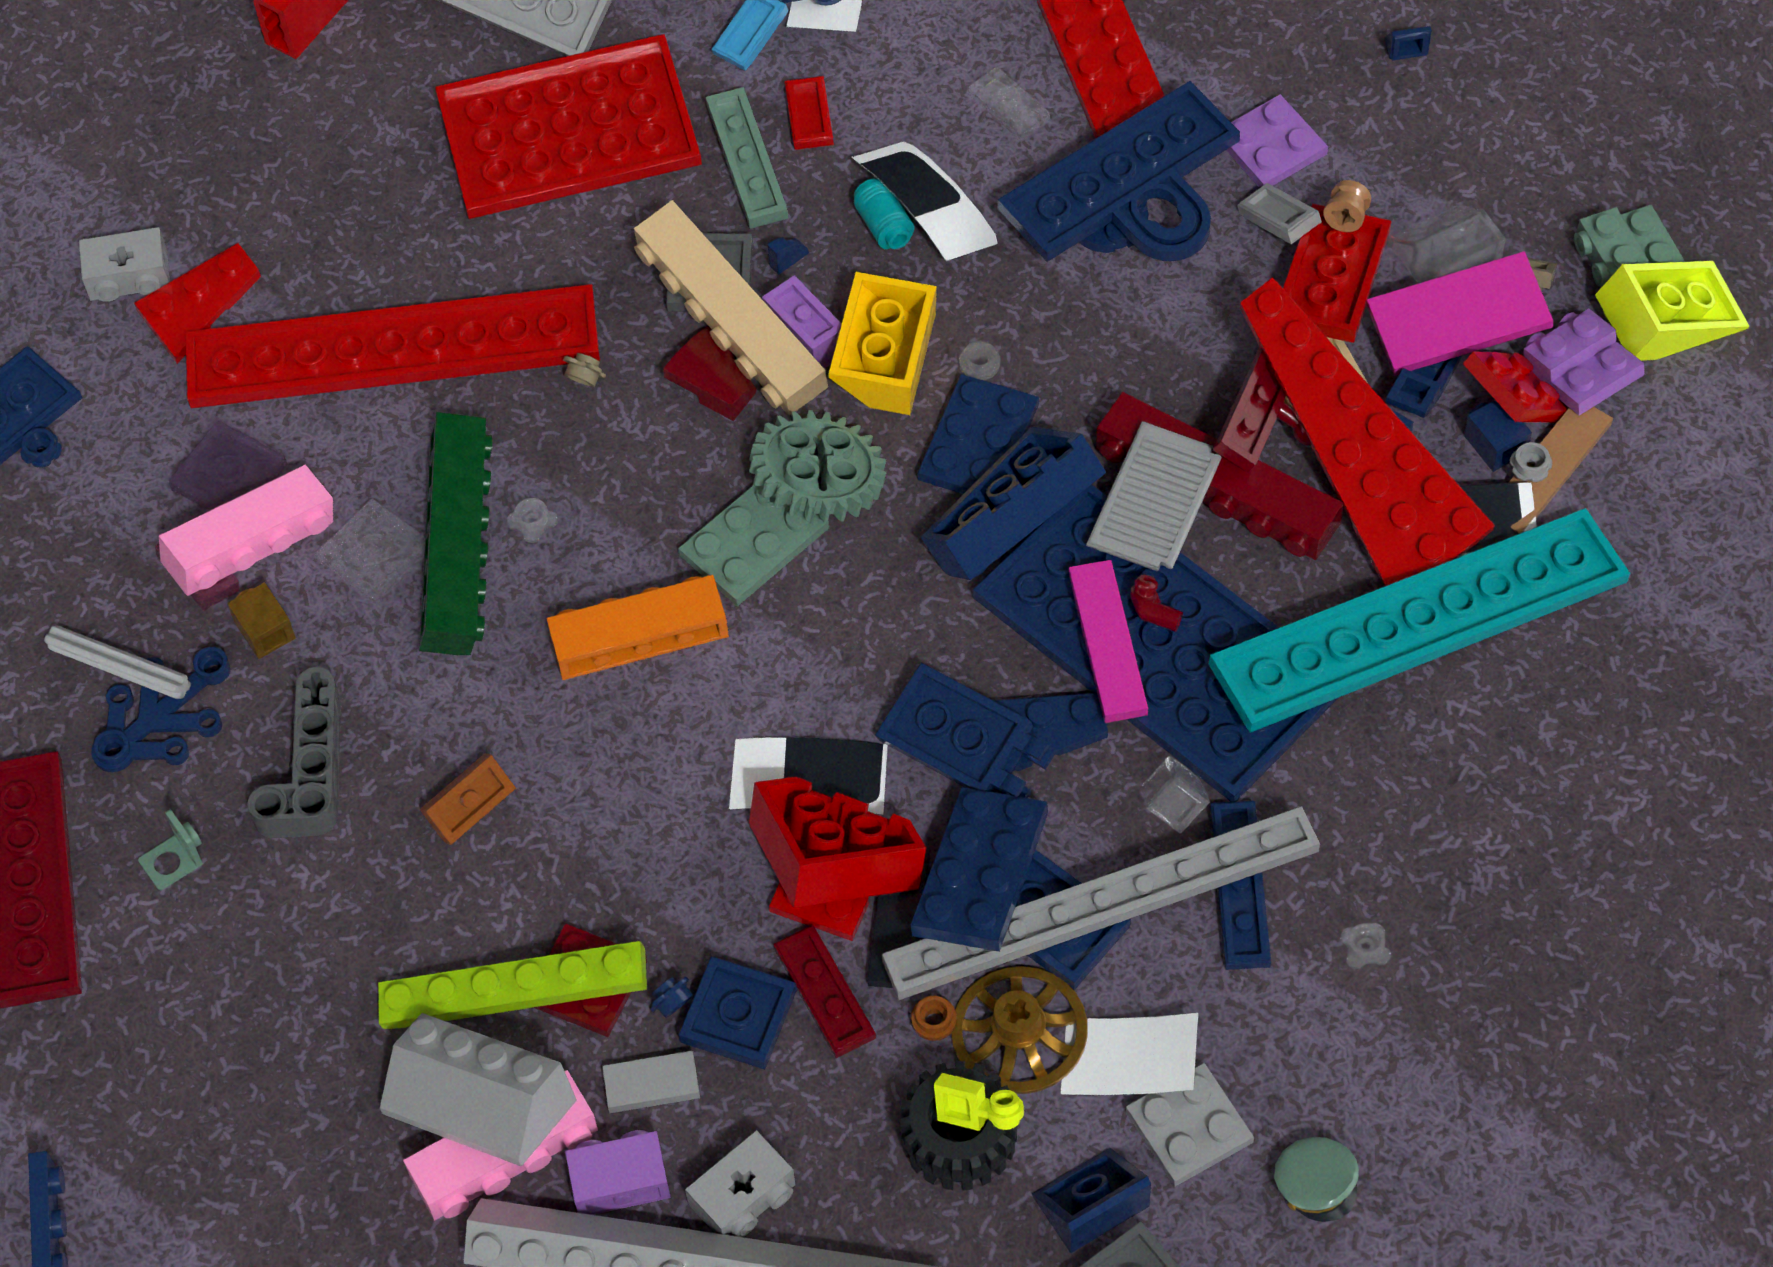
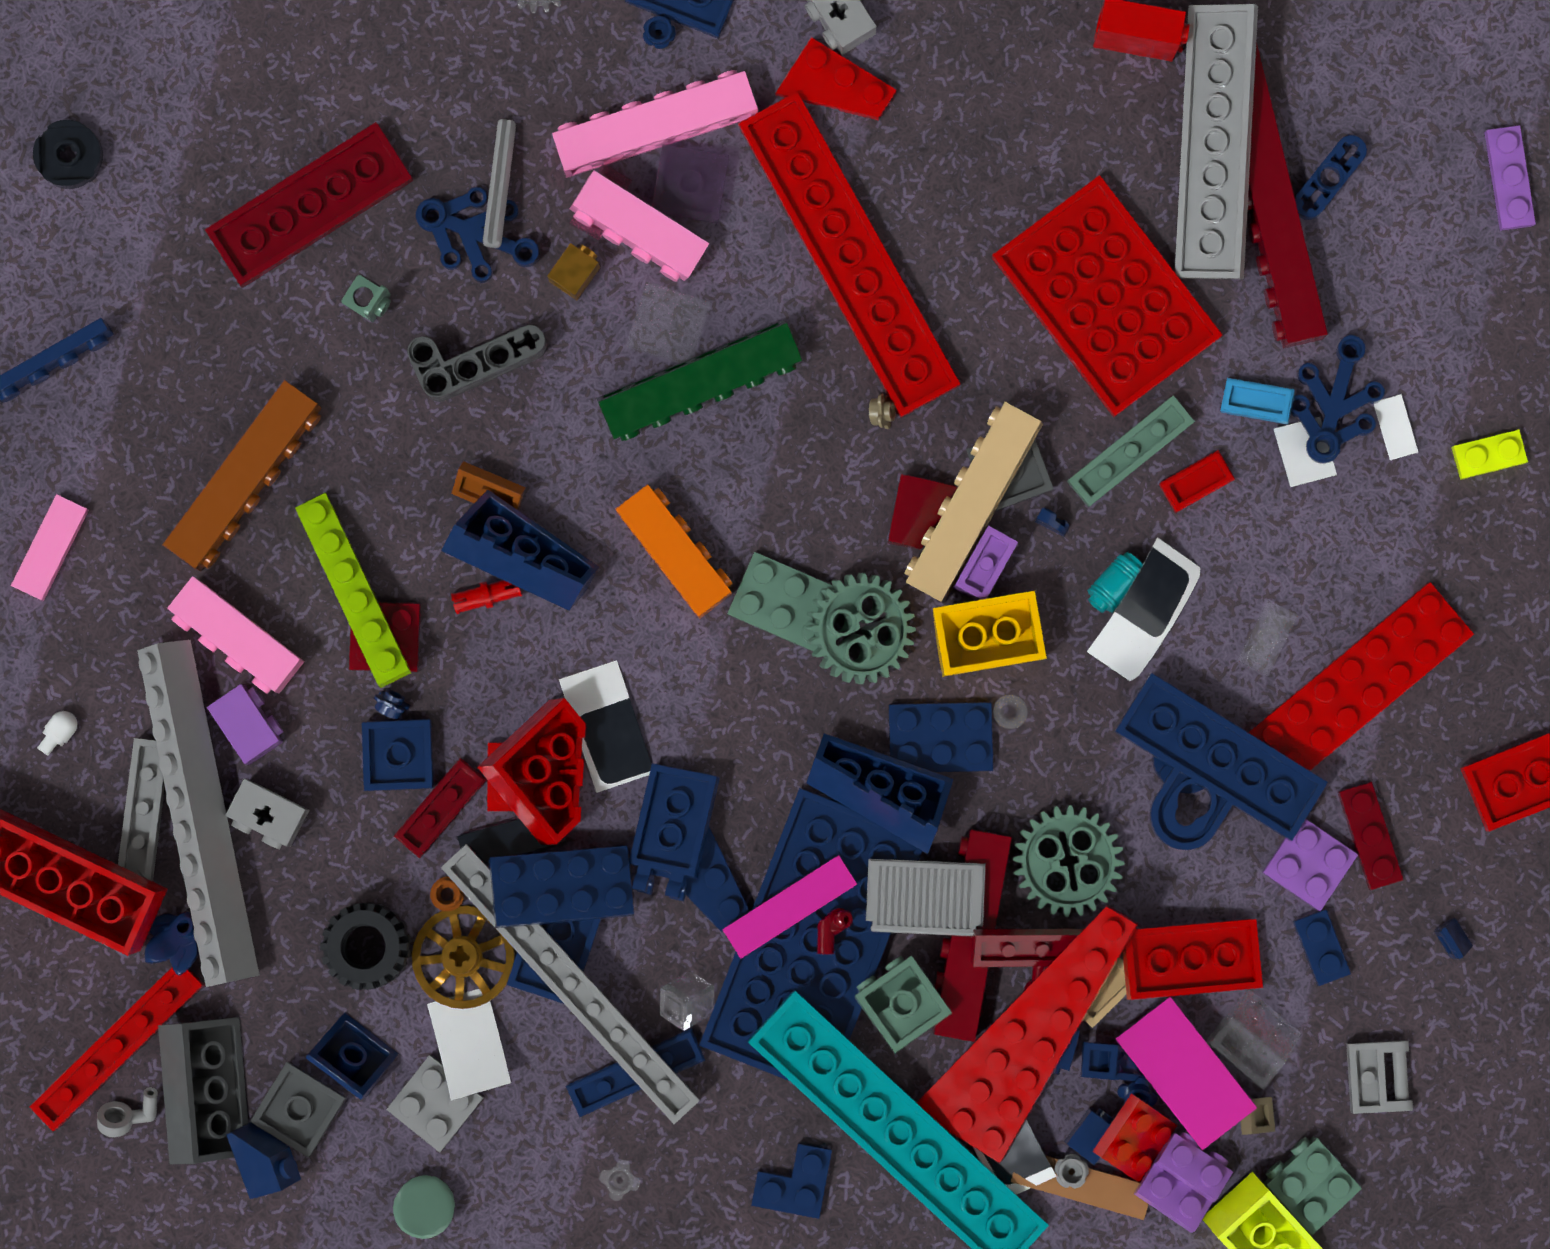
camera: 65 degrees right, 25 degrees up
(139, 484) = (655, 123): none -> bright pink brick
(311, 1068) = (242, 477): none -> dark orange brick
(474, 1089) = (254, 603): light grey slope -> none
(529, 509) = (737, 421): clear plate -> none
(559, 778) = (519, 552): none -> dark blue wedge
(590, 847) = (484, 595): none -> red pin
(651, 1082) = (326, 715): light grey tile -> none
(965, 1104) = (369, 952): neon yellow plate -> none
(1173, 356) = (1037, 868): none -> sand green gear
(1264, 80) = (1370, 836): none -> dark red plate
(1268, 556) = (902, 1003): none -> sand green plate
(1279, 213) = (1235, 896): light grey tile -> none
(1347, 206) = (1253, 951): medium nougat wheel -> none
(1368, 160) = (1321, 947): none -> dark blue plate
(1452, 755) = (800, 1193): none -> dark blue plate
(1459, 385) = (1140, 1086): none -> dark blue plate
(1530, 160) = (1368, 1079): none -> light grey plate

